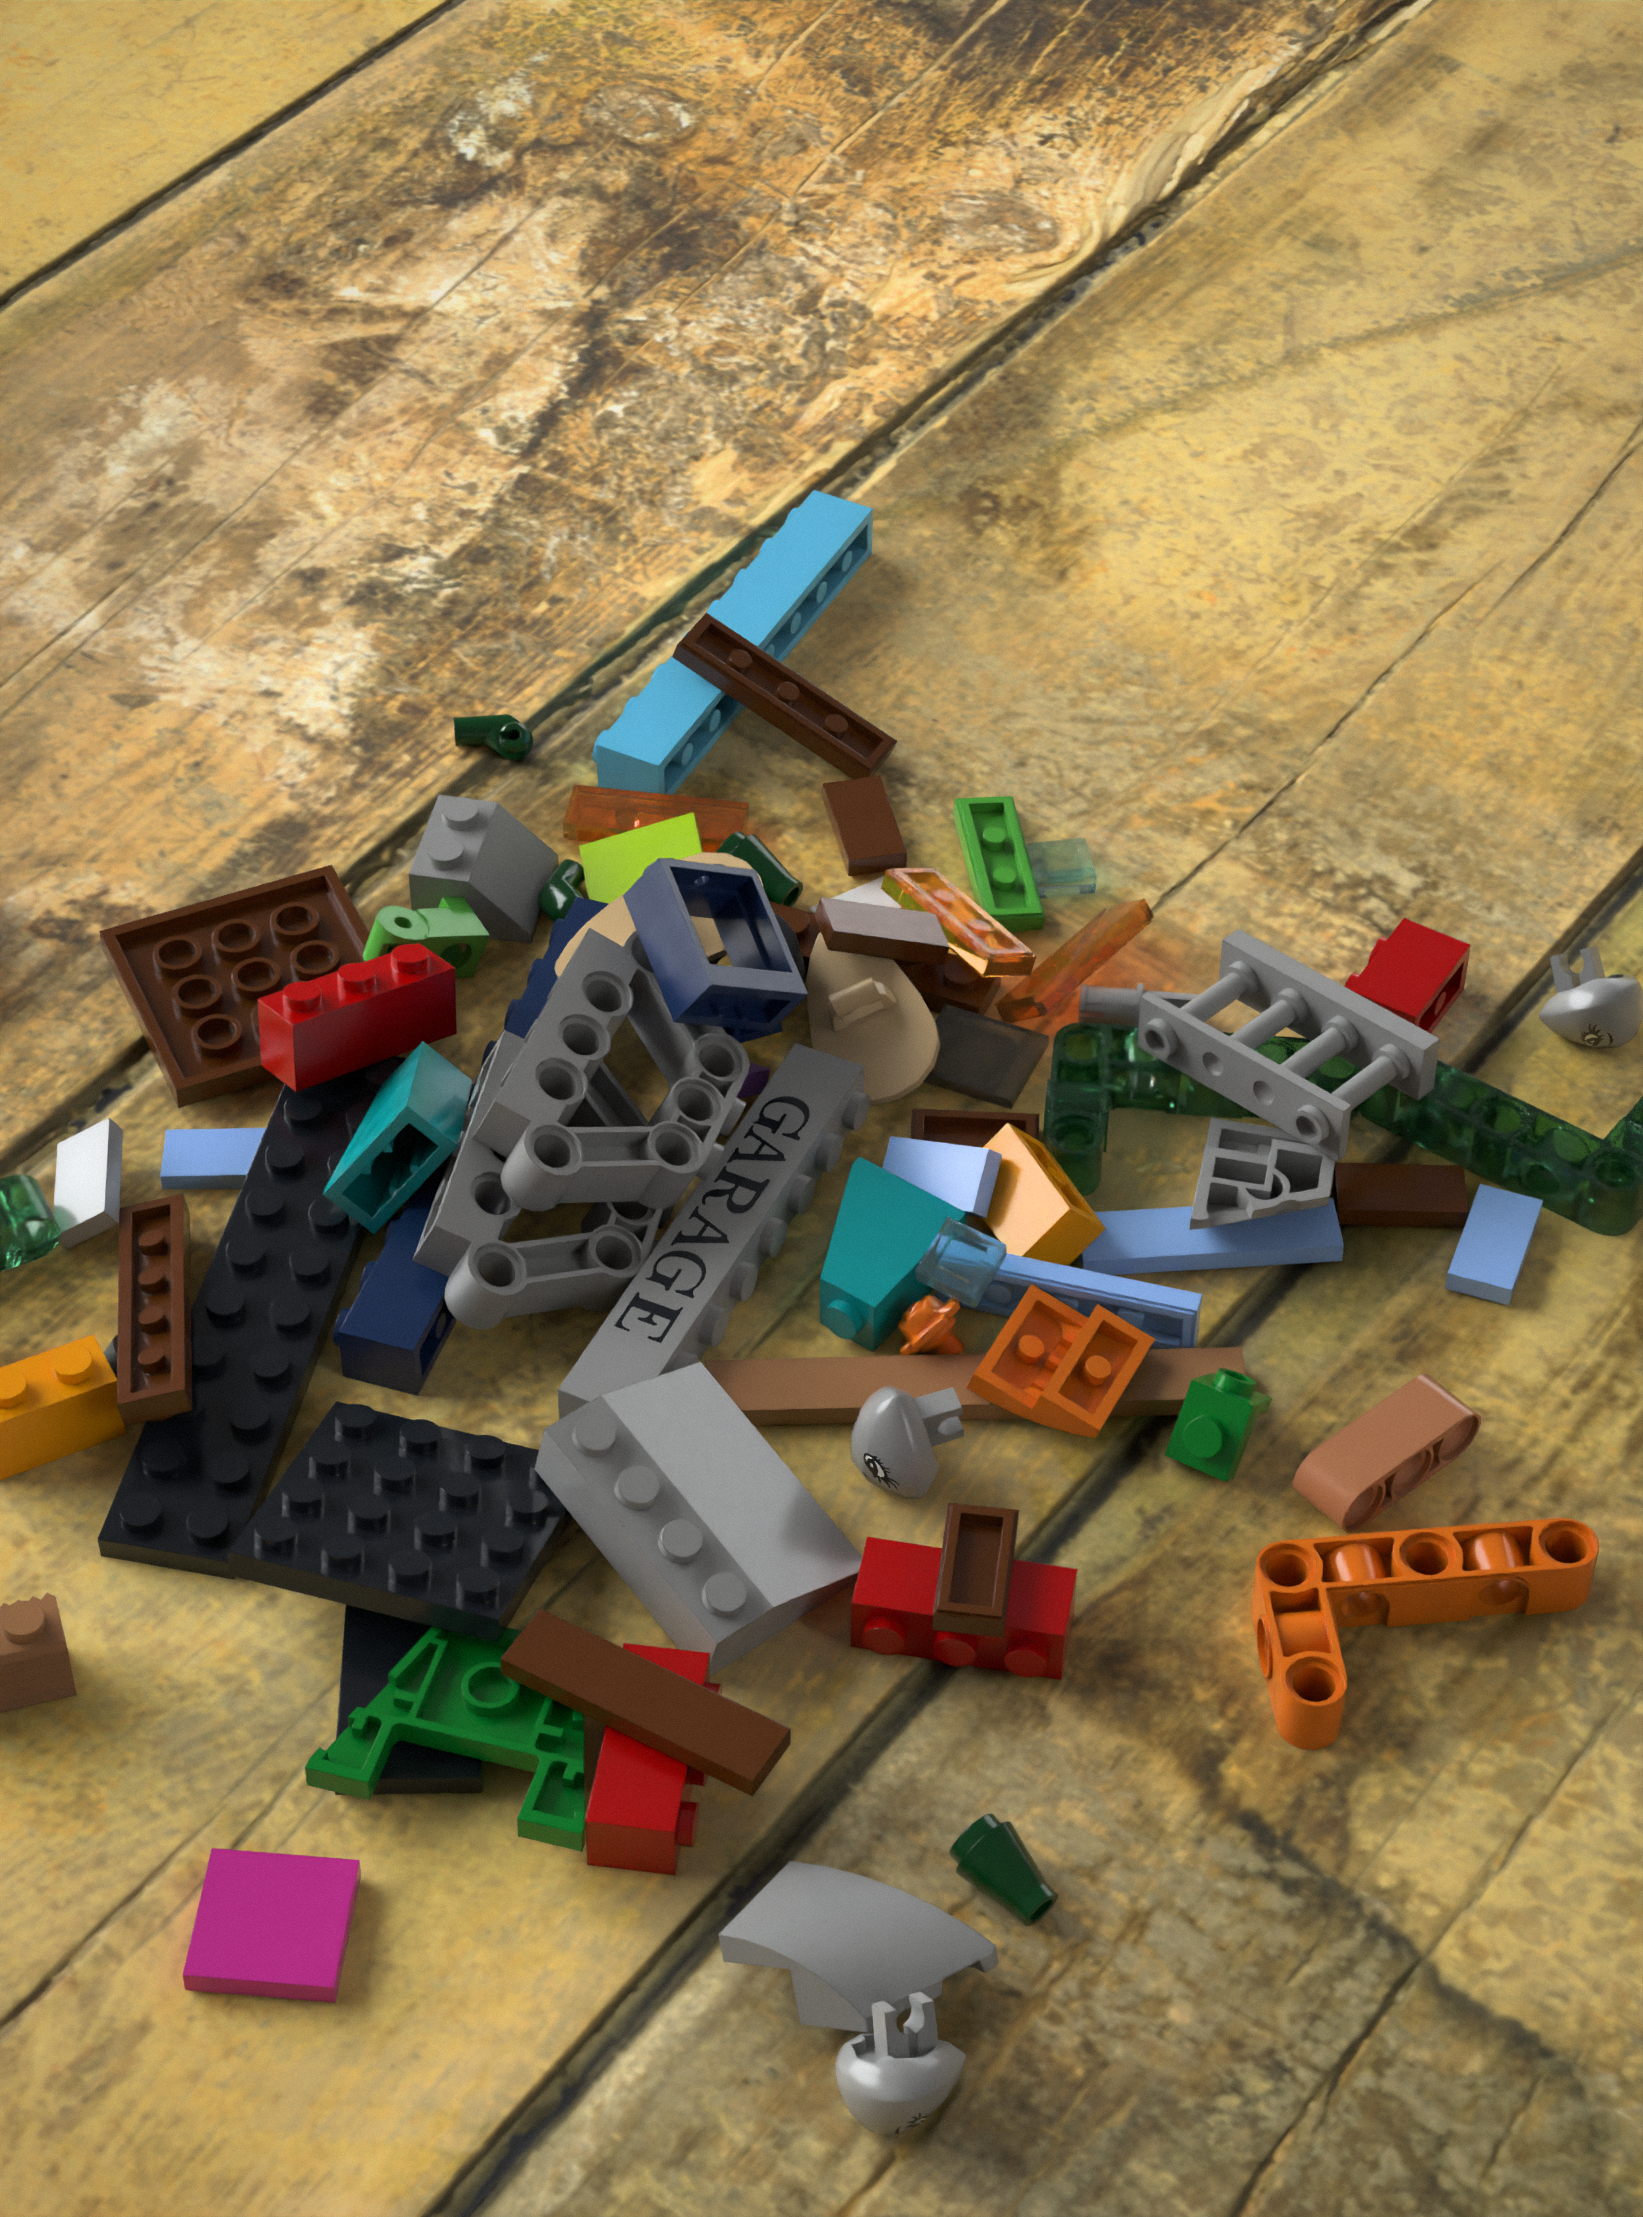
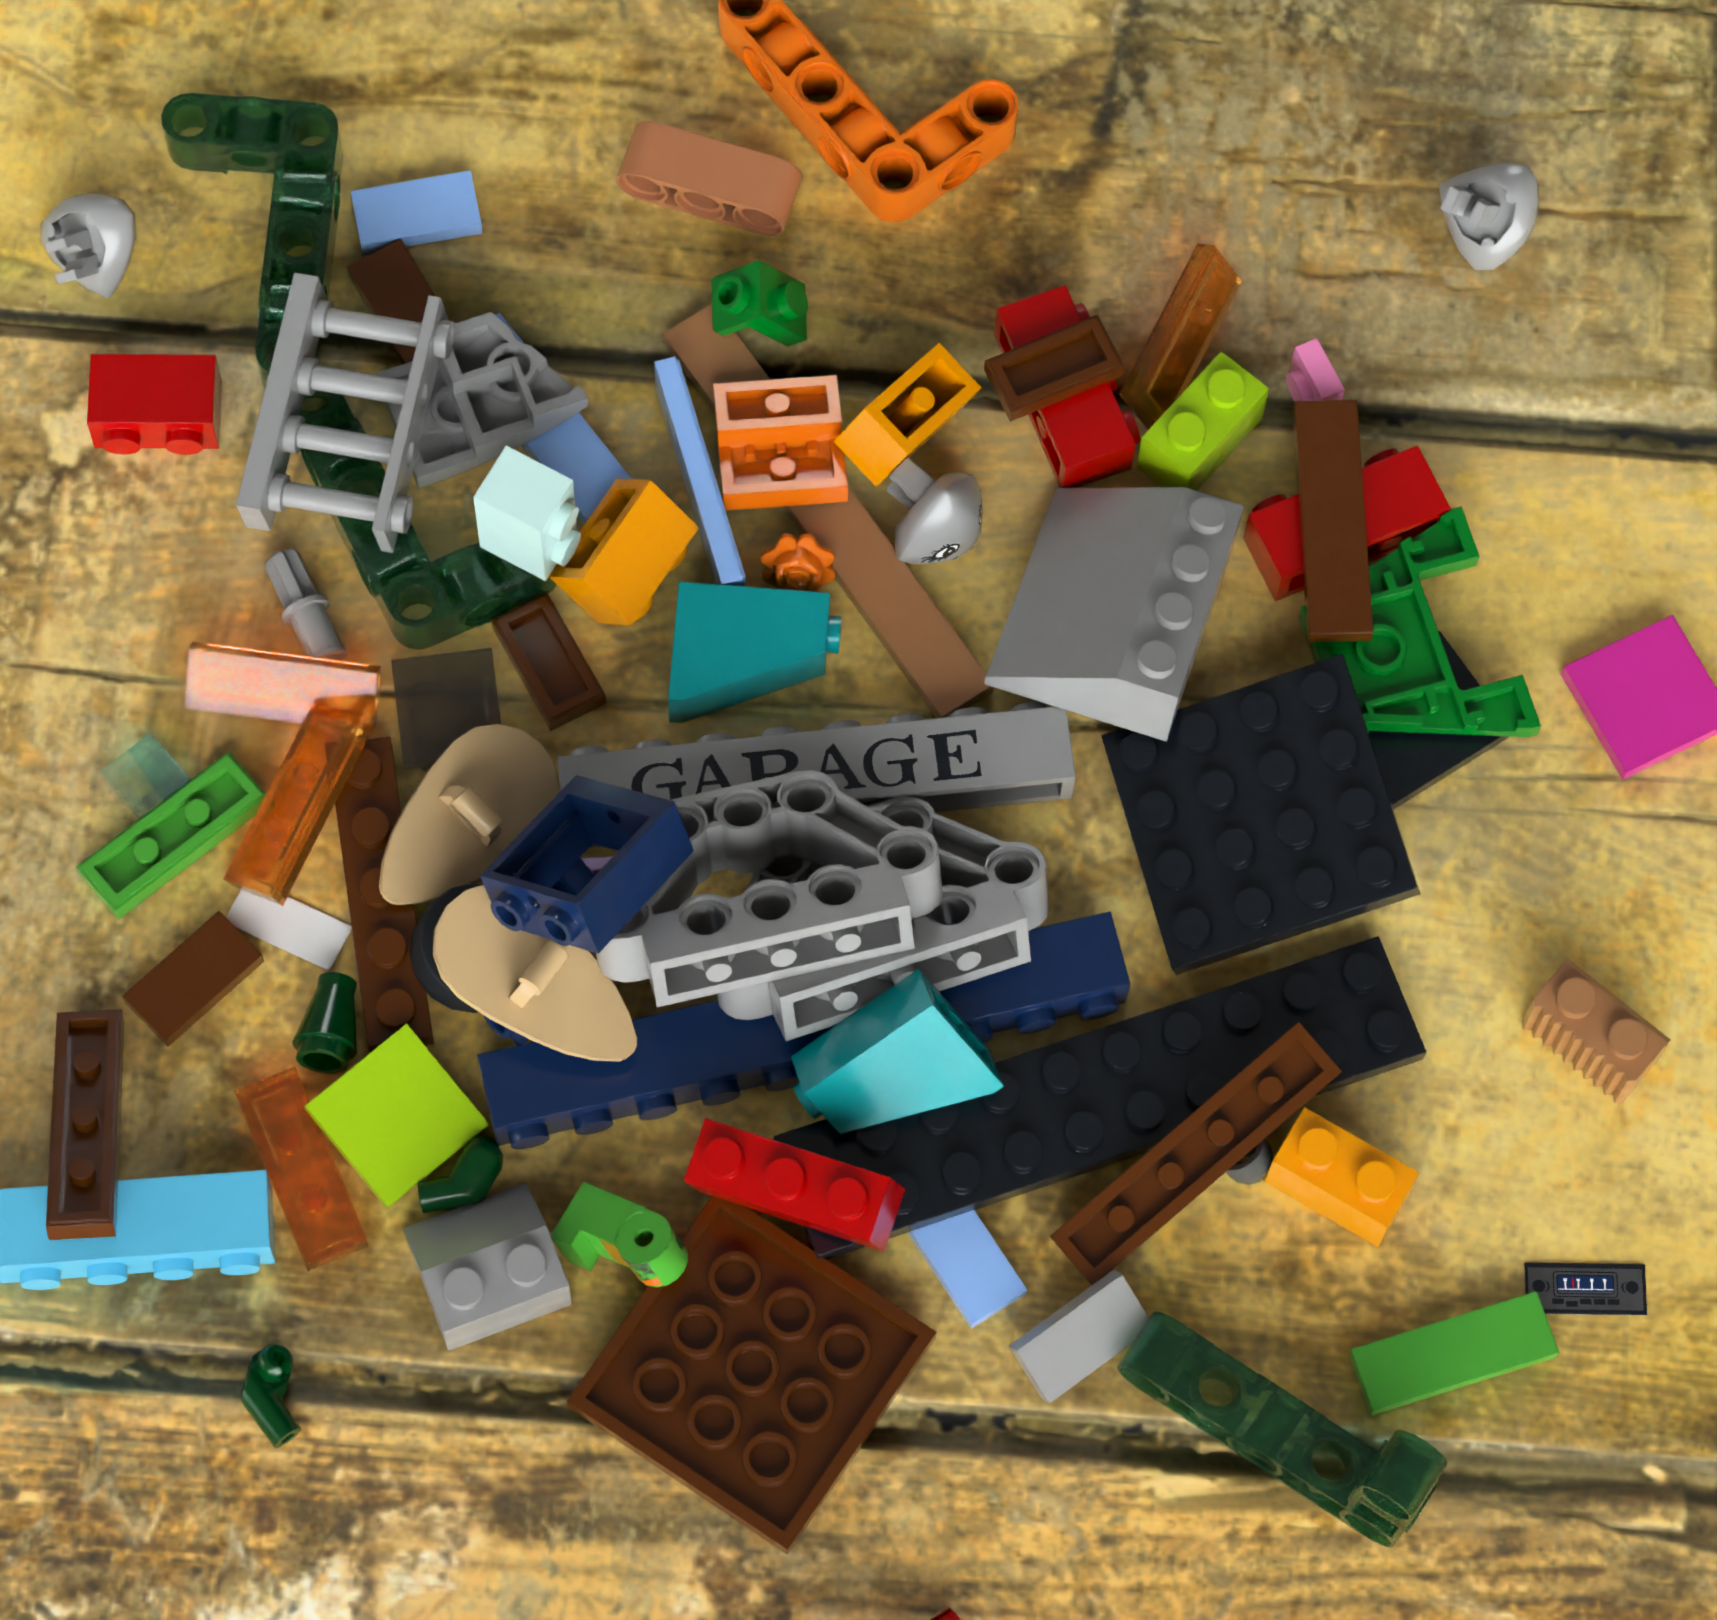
camera: 125 degrees left, 25 degrees up
(819, 1816) = (1312, 375): none -> bright pink plate
(838, 1689) = (1203, 425): none -> lime brick
(851, 1943) = (1409, 301): light grey slope -> none
(881, 931) = (381, 832): tile -> none
(948, 1171) = (642, 634): light blue tile -> none
(951, 1728) = (1181, 334): none -> clear orange tile
(961, 1262) = (744, 548): clear light blue tile -> none
(1001, 1867) = (1270, 248): dark green cone -> none
(1013, 1444) = (907, 414): none -> light orange brick
(1087, 1089) = (527, 514): none -> light aqua brick

